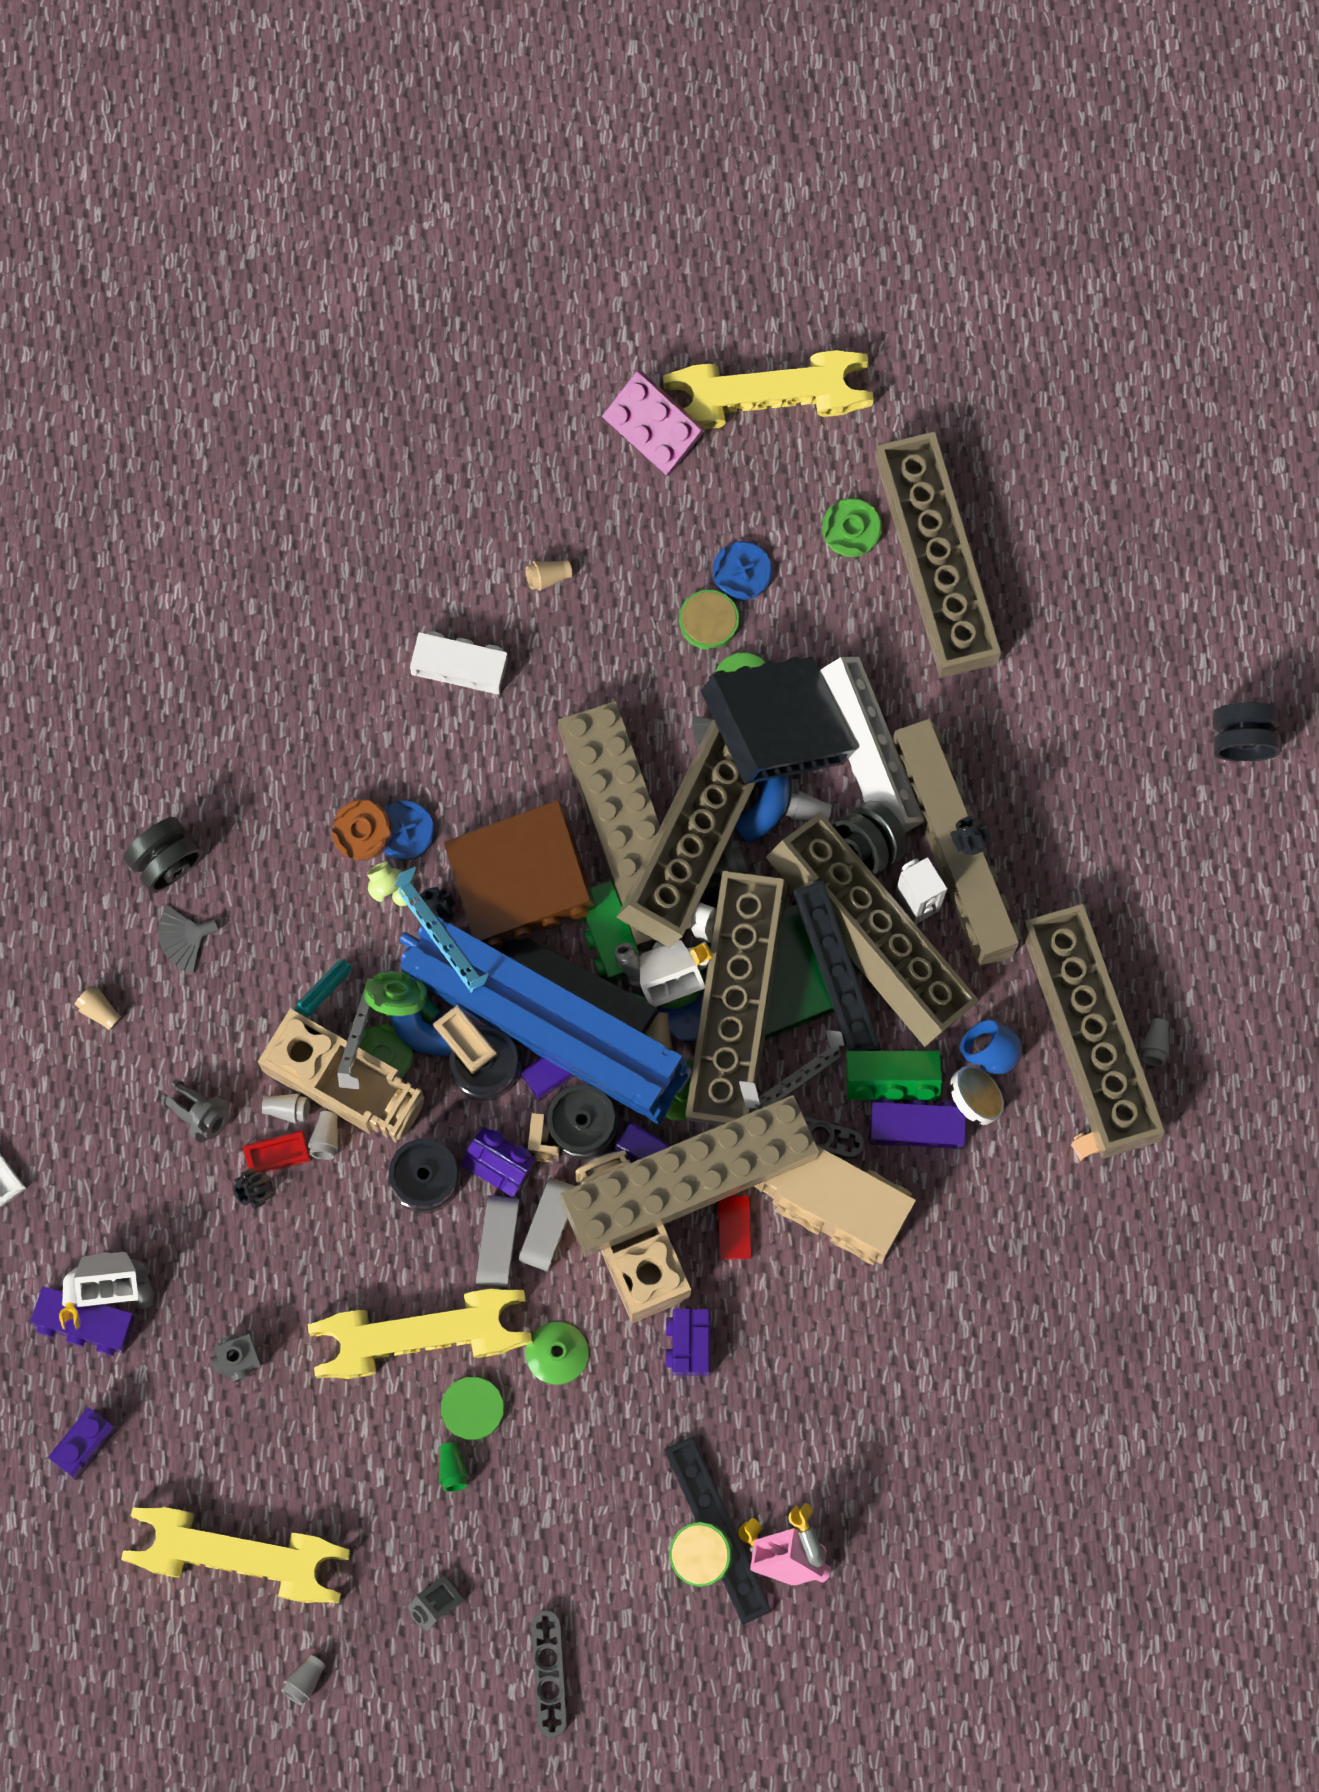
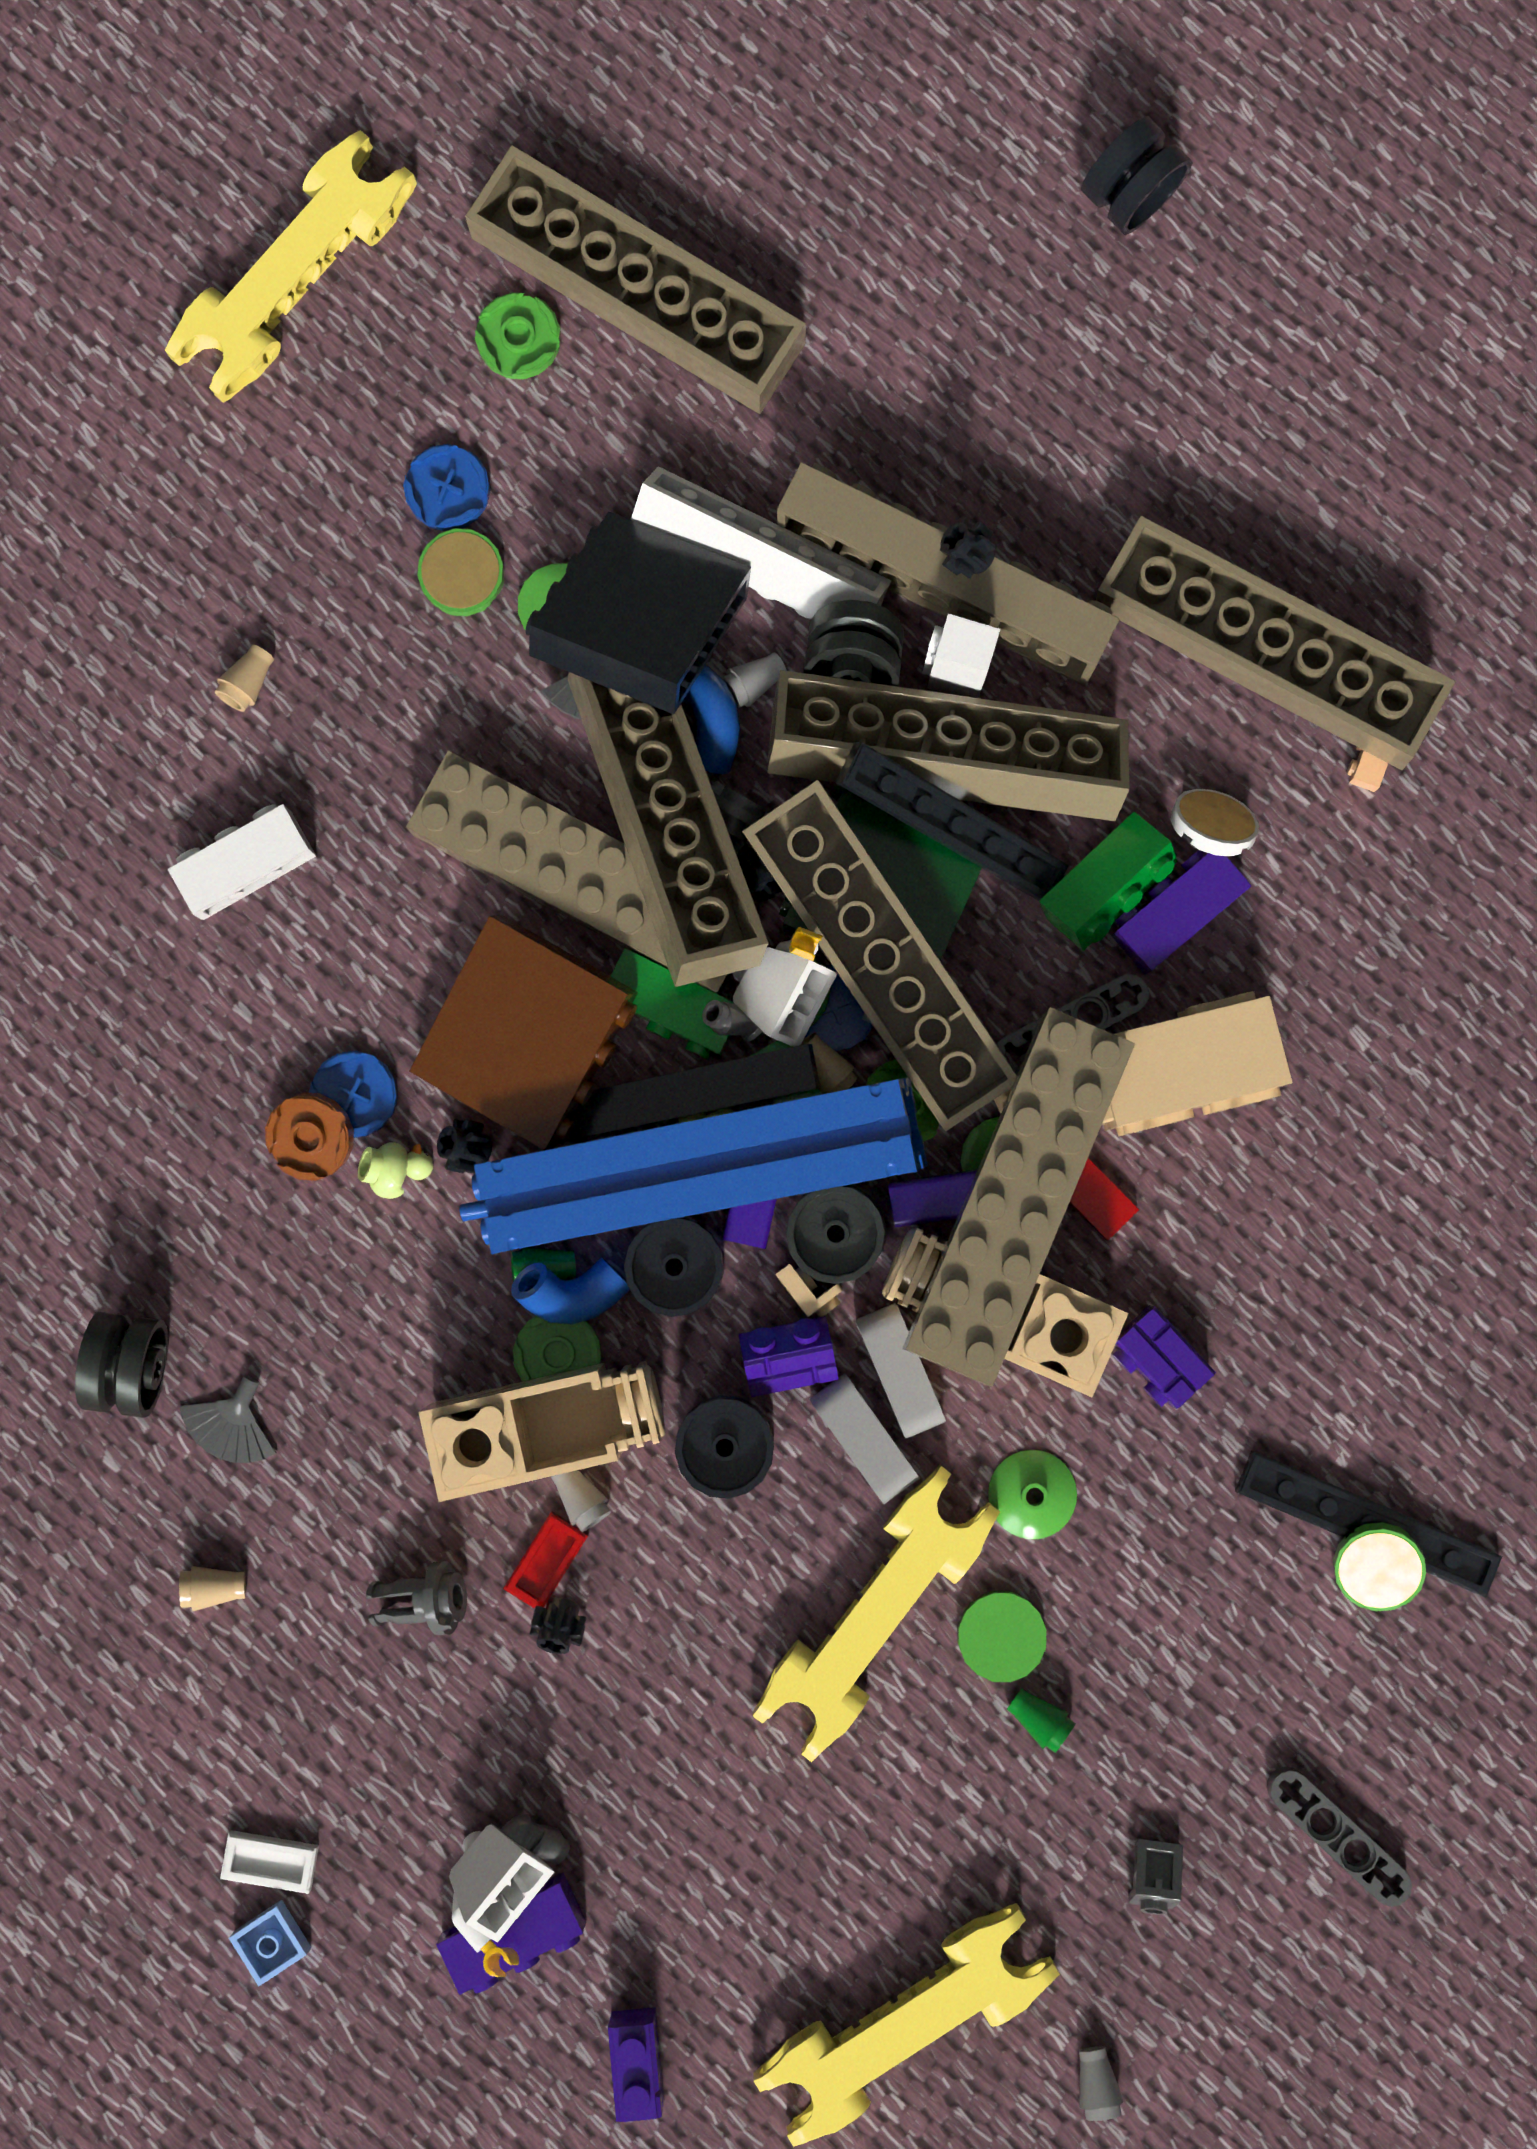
camera: 35 degrees left, 10 degrees up
(246, 1363) = (715, 1807): dark grey brick -> none
(287, 1107) = (511, 1506): light grey cone -> none
(323, 988) = (430, 1349): teal axle -> none
(352, 1045) = (483, 1295): light grey piece -> none
(395, 994) = (515, 1288): bright green tile -> none
(444, 939) = (498, 1178): medium azure piece -> none
(464, 1039) = (634, 1266): tan tile -> none
(653, 422) = (202, 410): plate -> none
(703, 922) = (771, 903): white beam -> none
(749, 1089) = (996, 1044): light grey piece -> none
(788, 1555) = (1472, 1493): bright pink torso -> none
(1000, 1053) = (1194, 755): blue helmet -> none
(1156, 1043) = (1341, 595): light grey cone -> none

